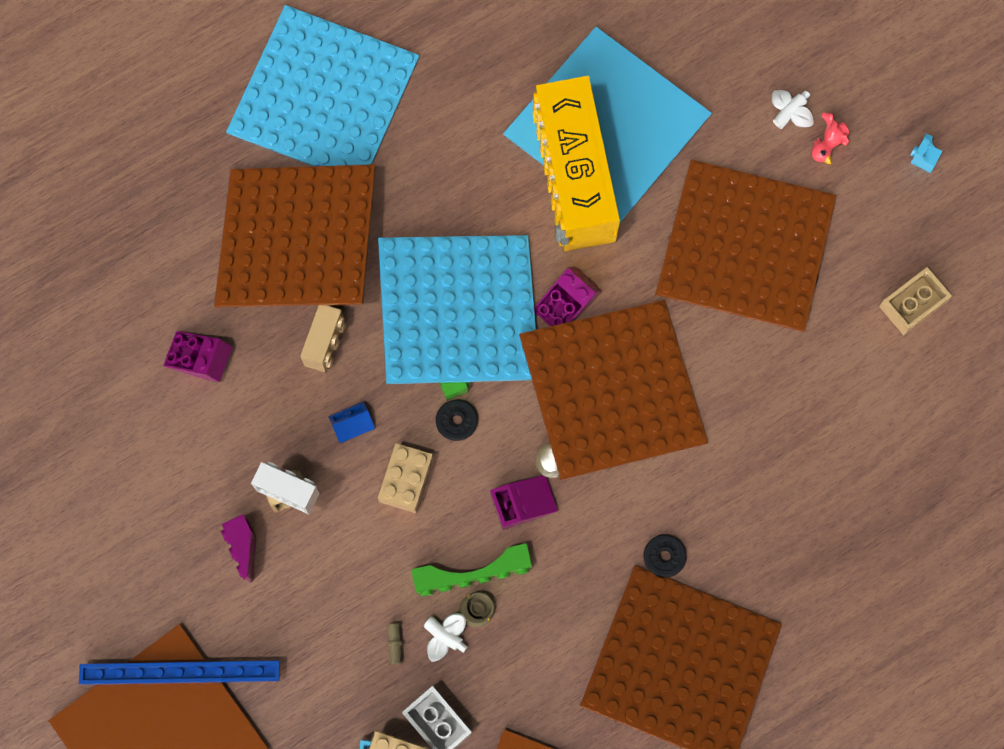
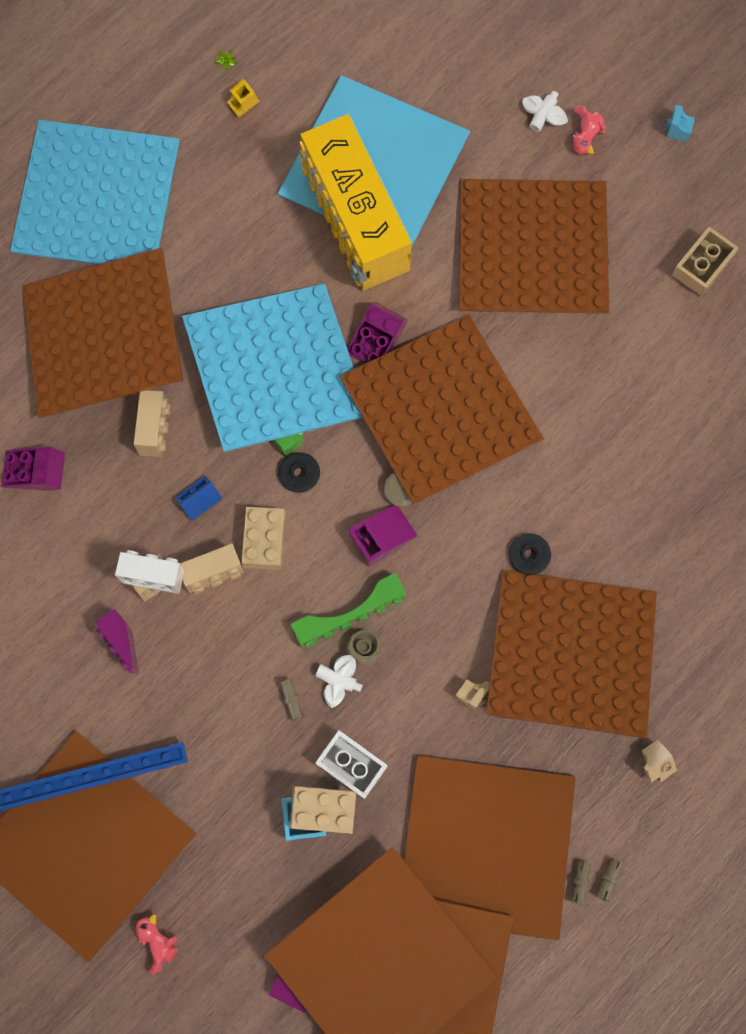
camera: 15 degrees left, 0 degrees up
(347, 497) = (211, 569): none -> tan brick
(491, 28) = (242, 98): none -> yellow brick
(573, 682) = (473, 694): none -> tan brick

